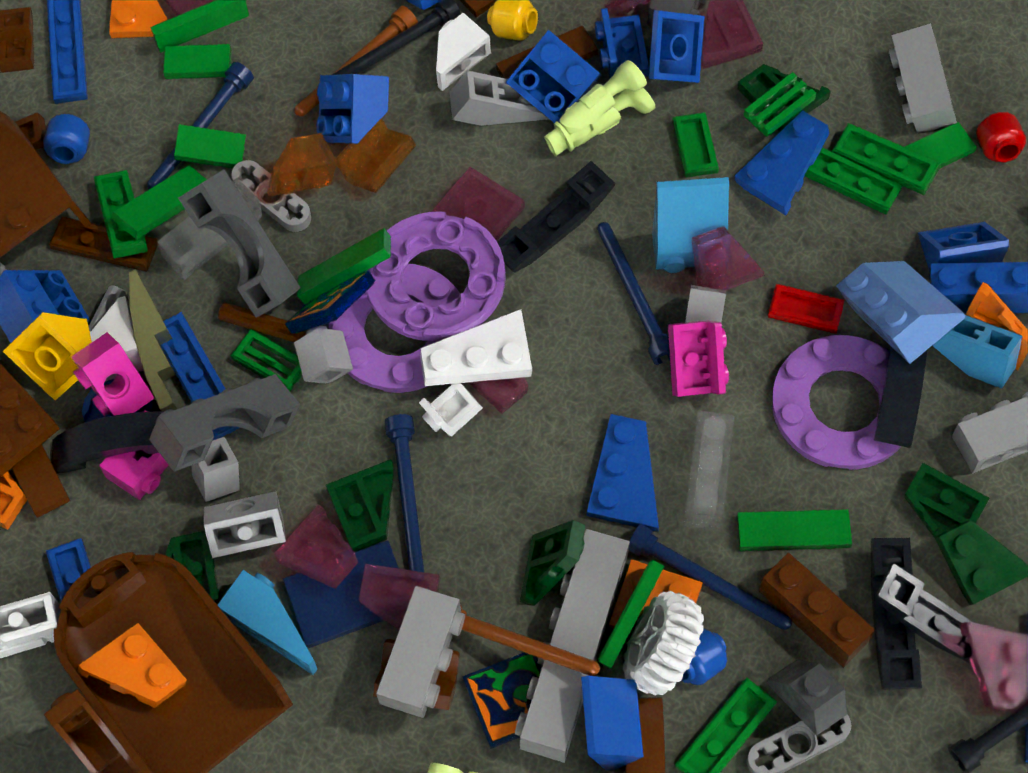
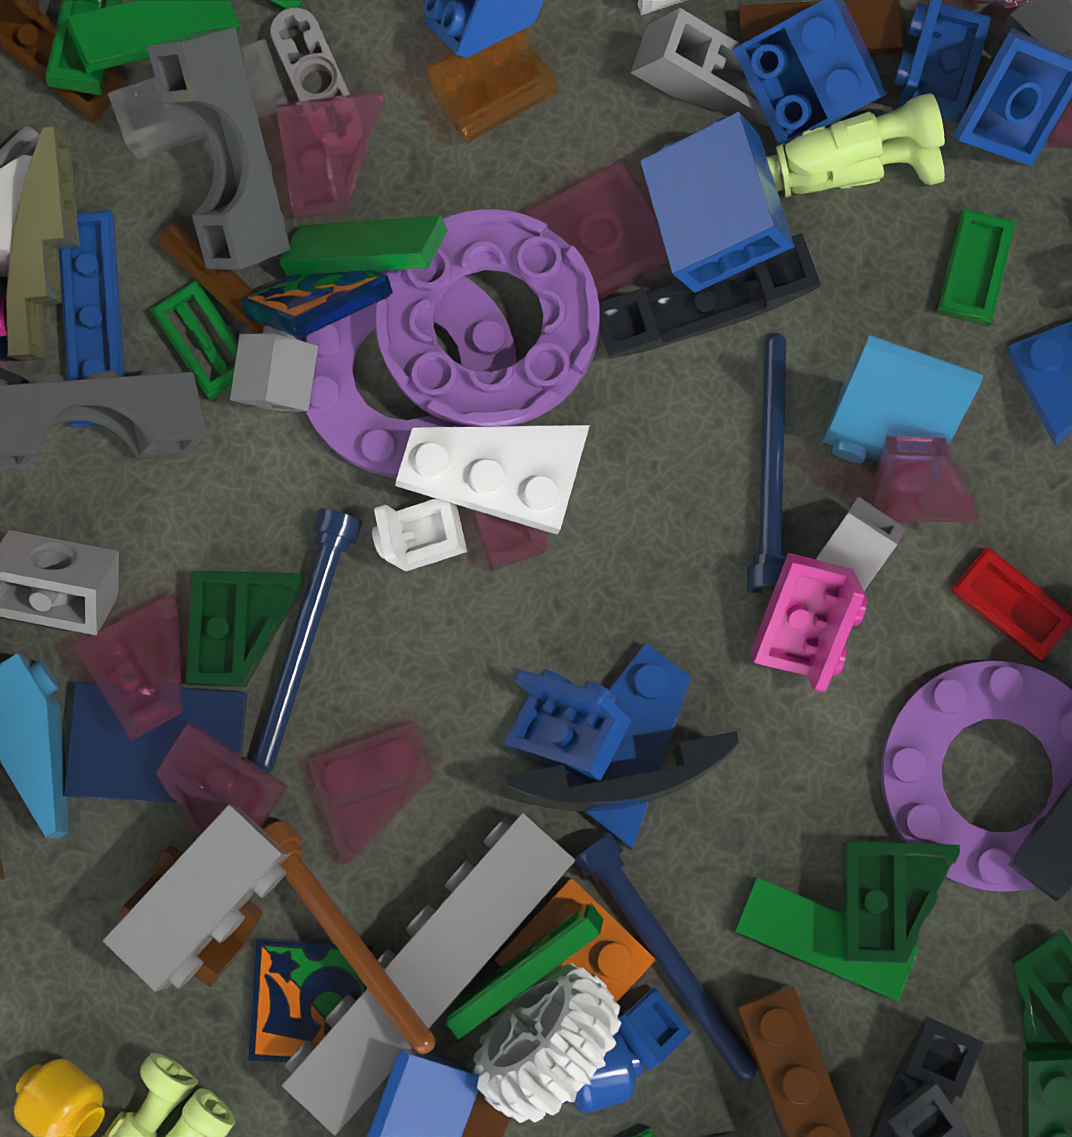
camera: 25 degrees right, 15 degrees up
(218, 472) = (49, 483): light grey brick -> none
(296, 226) = (324, 149): none -> clear pink wing
(303, 166) = (375, 53): clear orange slope -> none
(487, 561) = (369, 785): none -> clear pink wing
(535, 163) = (716, 202): none -> blue brick
(550, 558) = (453, 833): dark green wing -> none
(587, 470) = (567, 724): none -> blue bracket
(598, 509) = (550, 788): none -> black slope
(709, 471) = (744, 798): clear brick -> none
(721, 619) = (652, 1028): none -> blue tile
(817, 485) = (889, 896): none -> dark green wing

